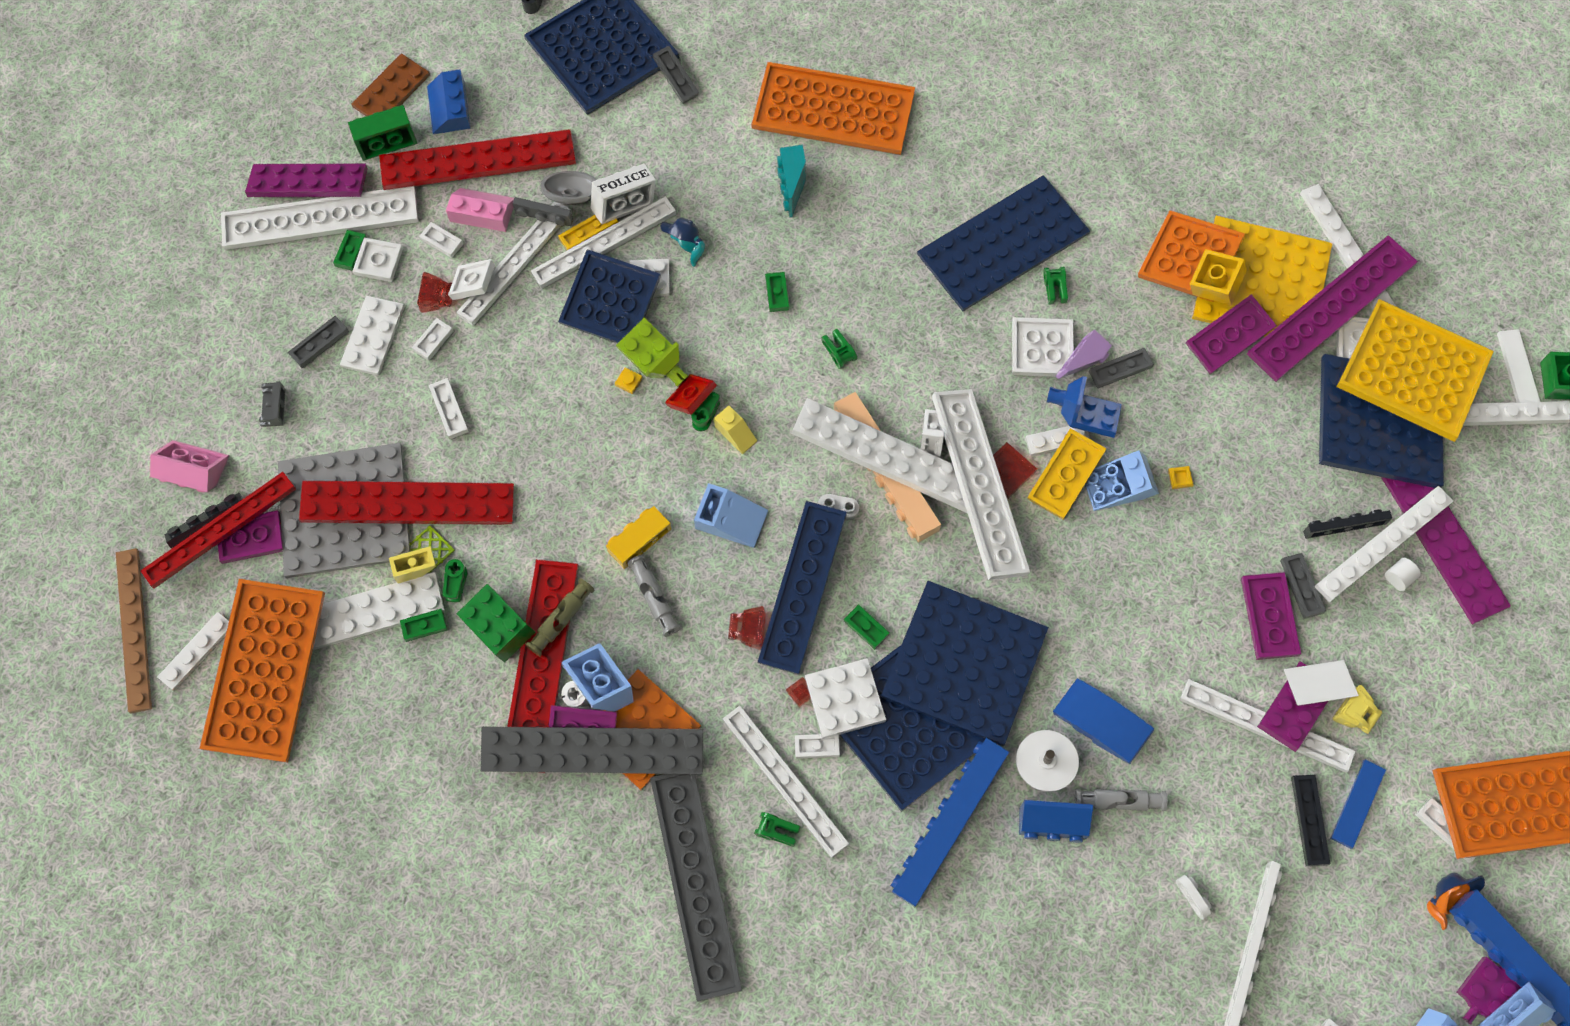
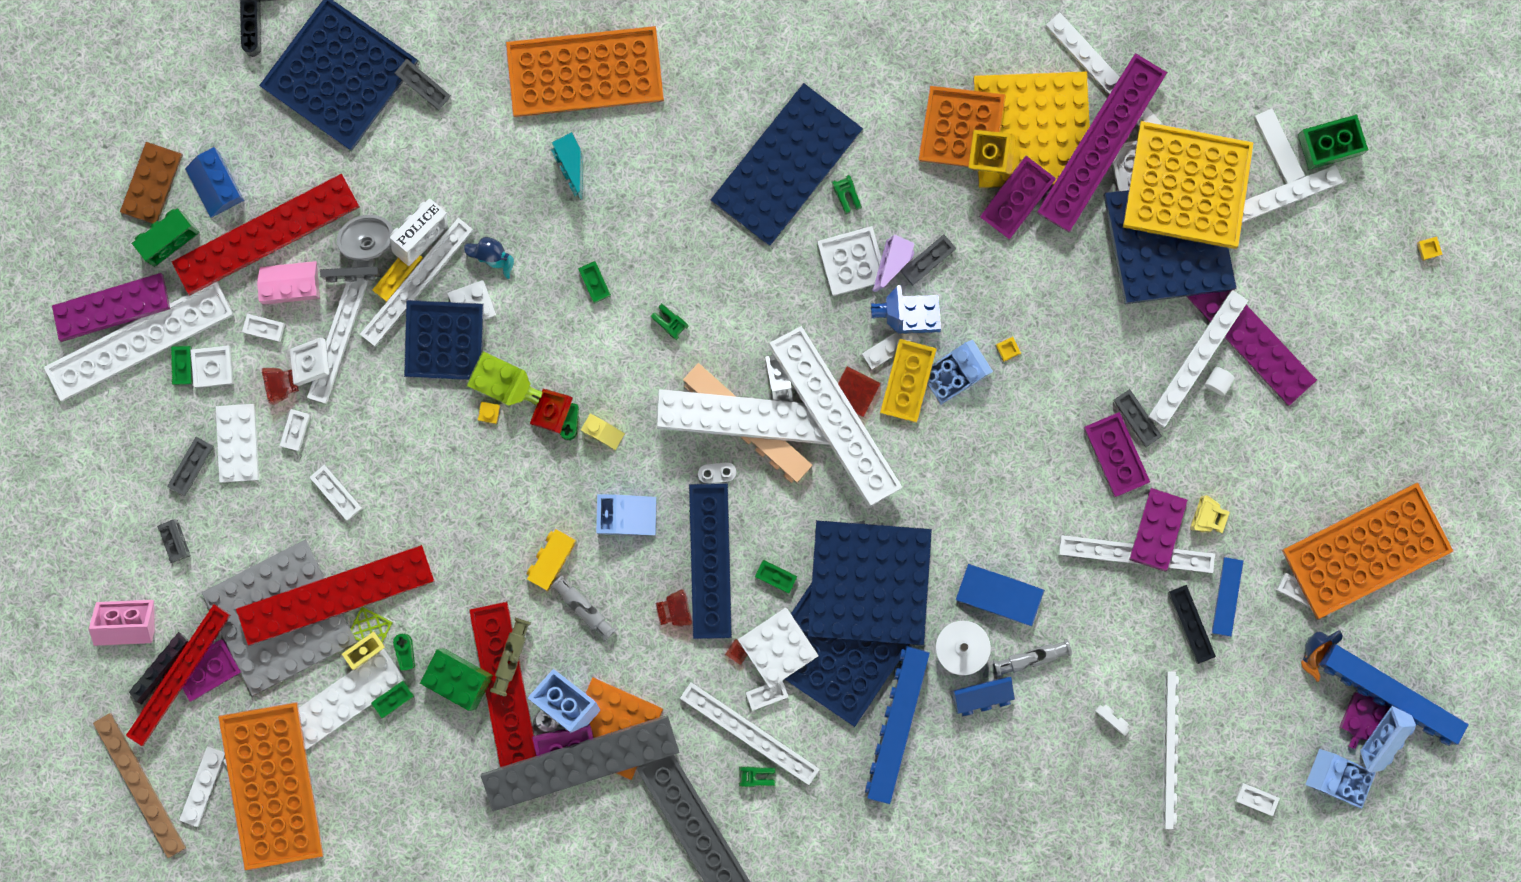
camera: 20 degrees left, 15 degrees up
(1320, 682) = (1172, 504): white sticker -> none
(1354, 522) = (1168, 344): black plate -> none

